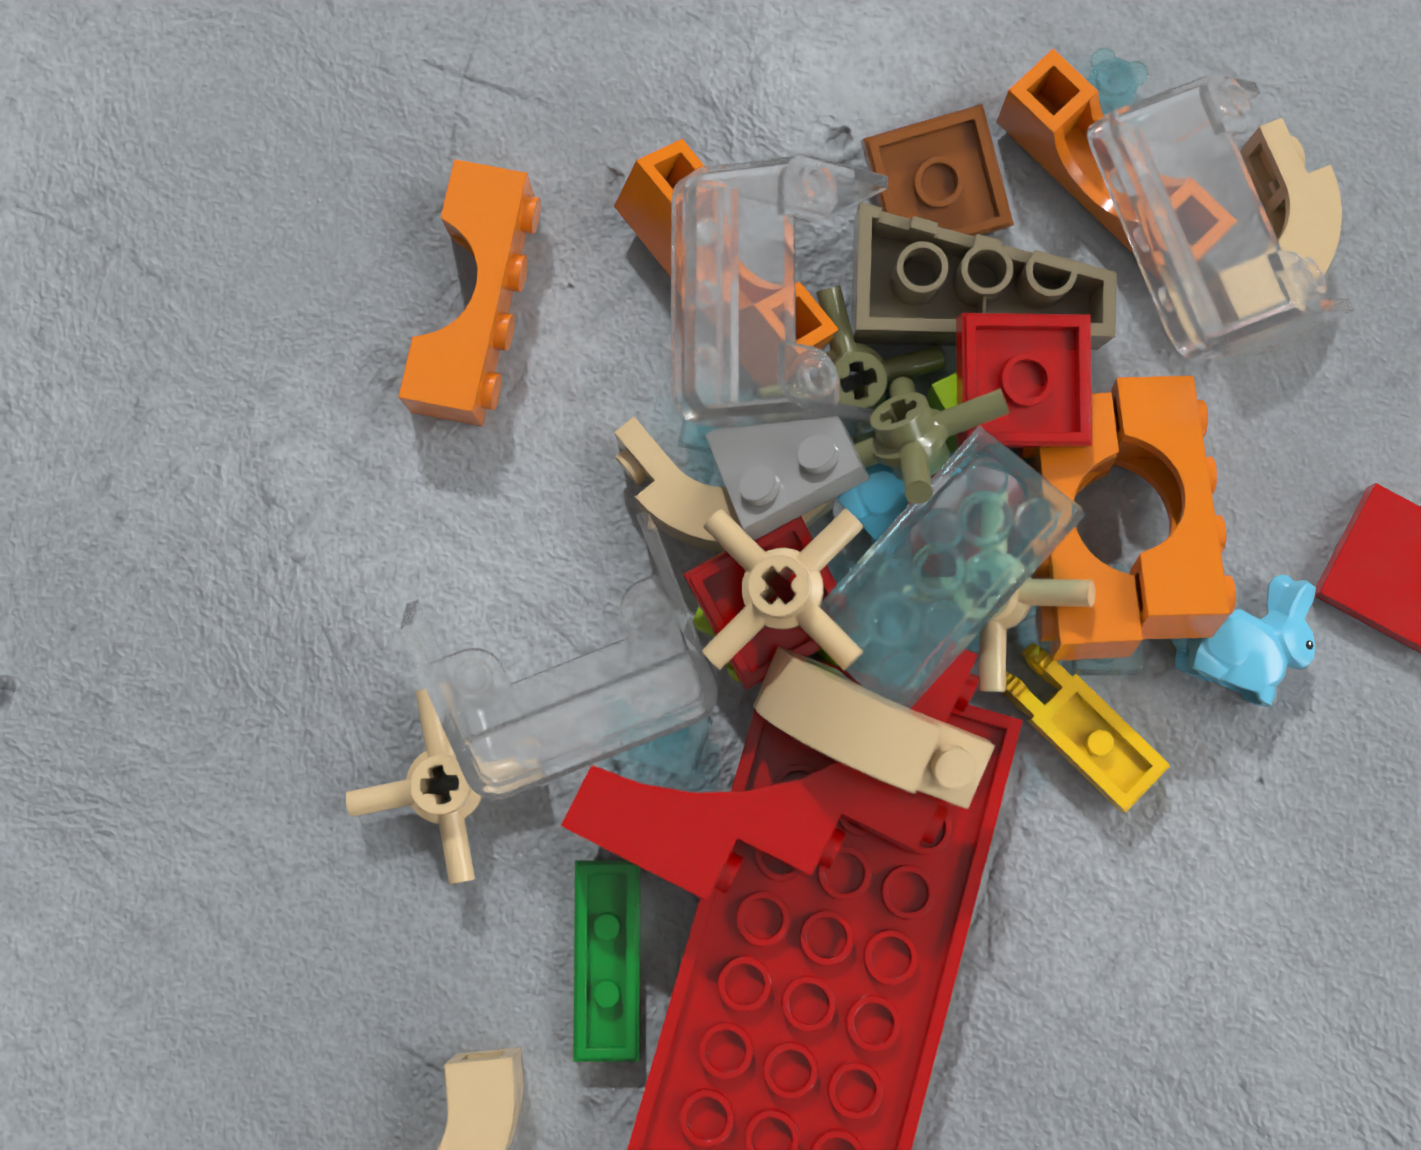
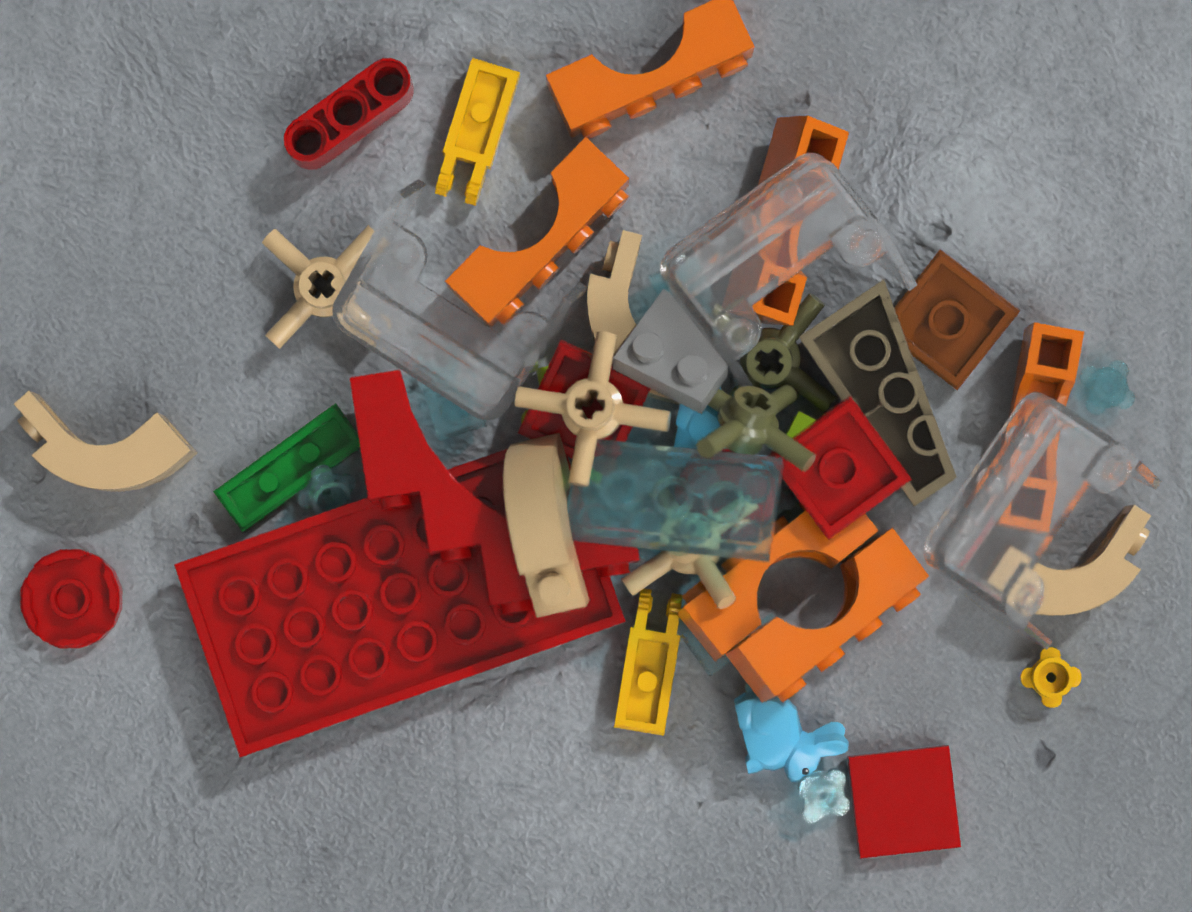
camera: 50 degrees right, 5 degrees up
(272, 602) = (360, 91): none -> red beam
(398, 507) = (477, 125): none -> yellow hinge
(568, 602) = (496, 280): none -> orange arch
(673, 934) = (335, 497): none -> clear light blue plate
(1342, 645) = (818, 782): none -> clear light blue plate
(1387, 333) = (1065, 677): none -> yellow plate

